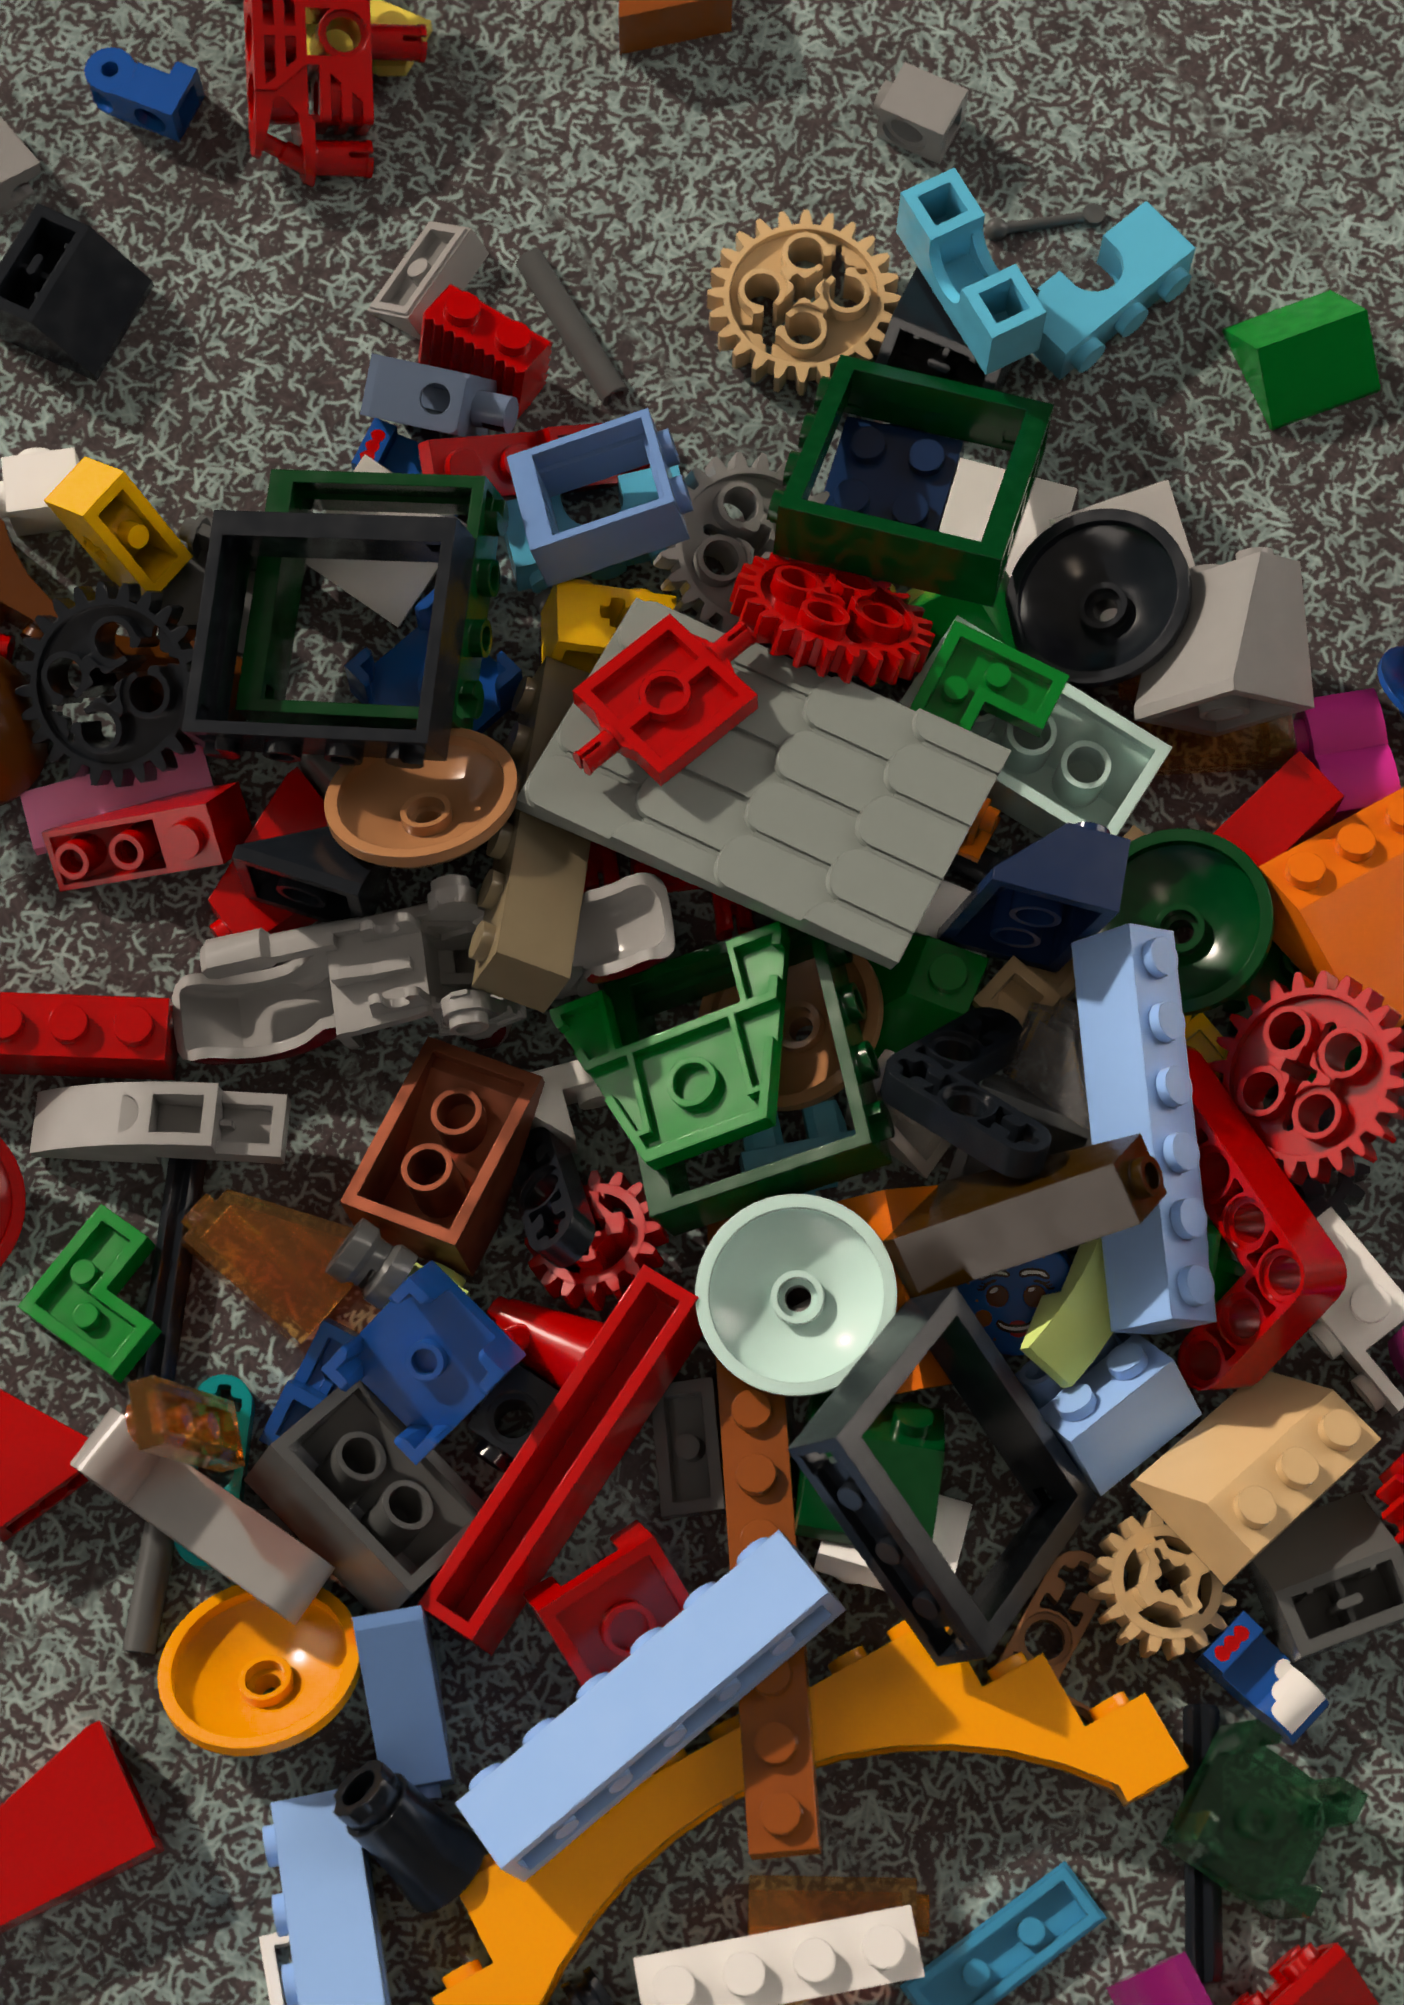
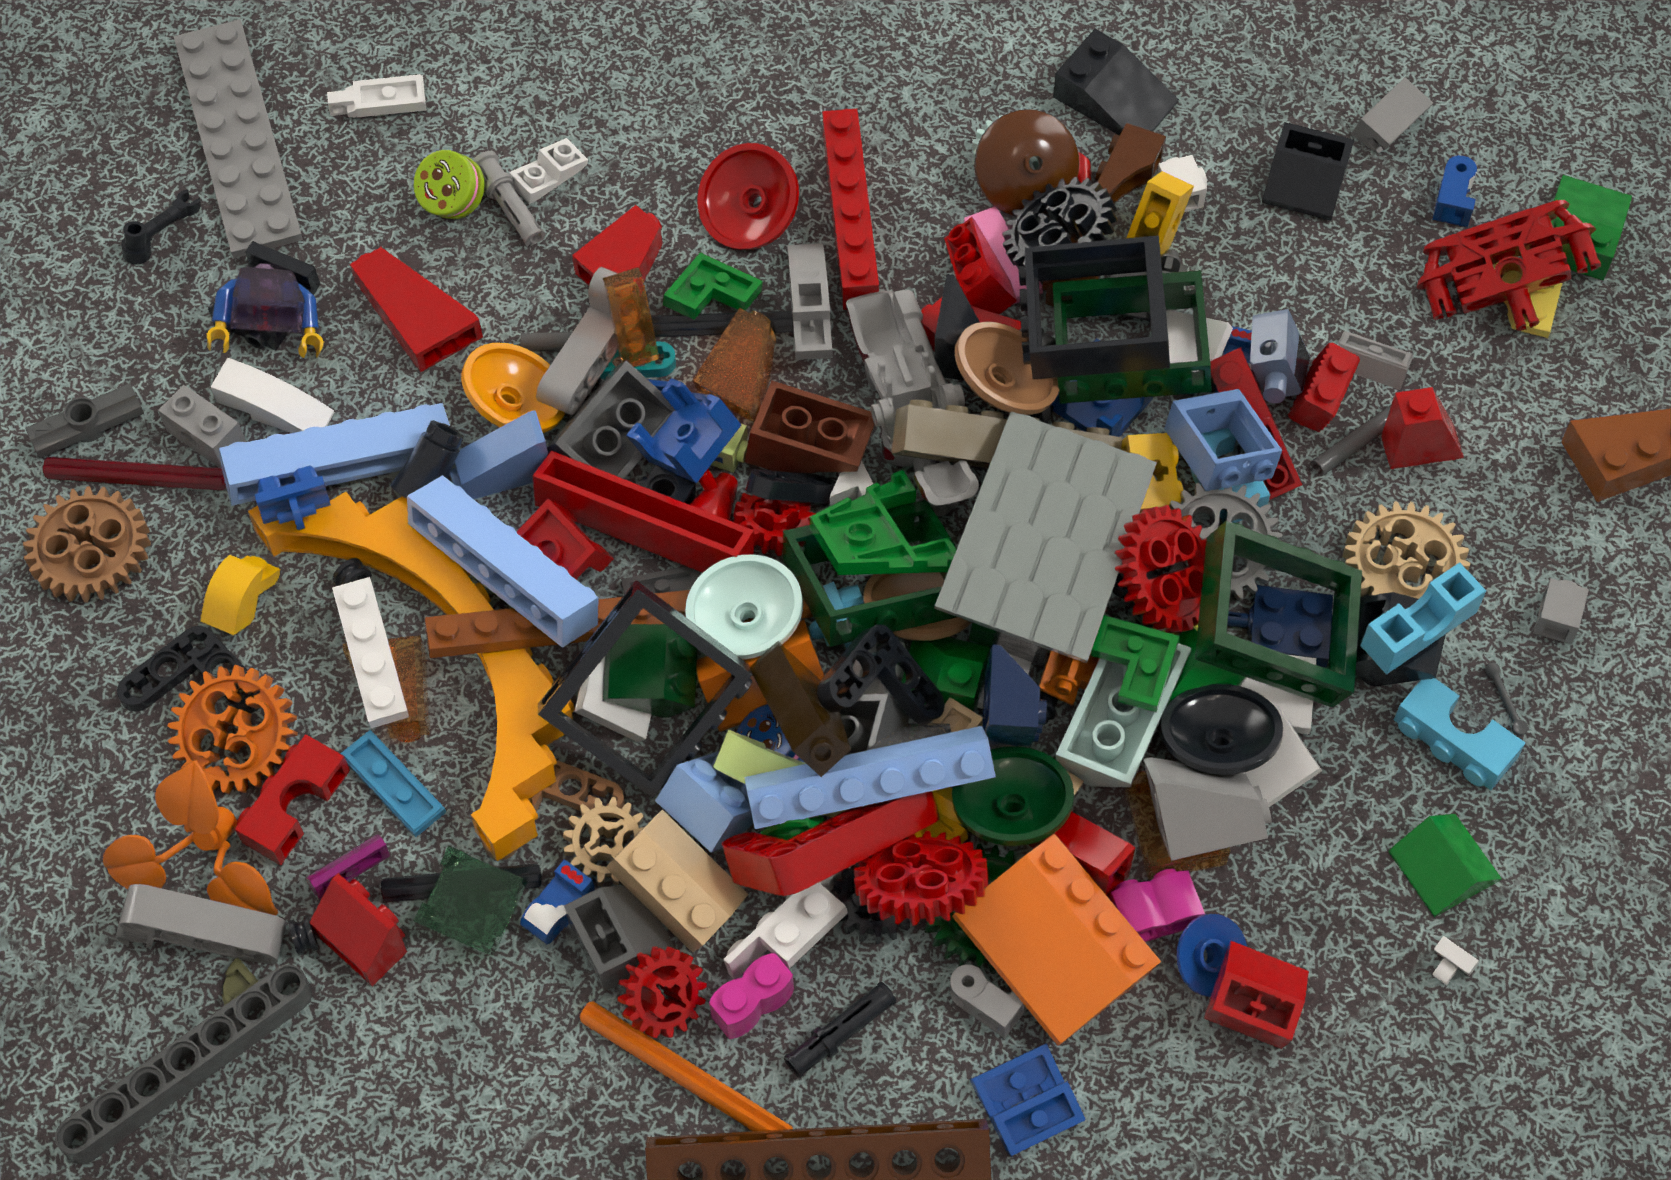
camera: 85 degrees right, 10 degrees down
(371, 1263) = (739, 395): dark grey wheel -> none
(597, 234) = (1419, 430): none -> red slope
(665, 699) = (1082, 471): red plate -> none

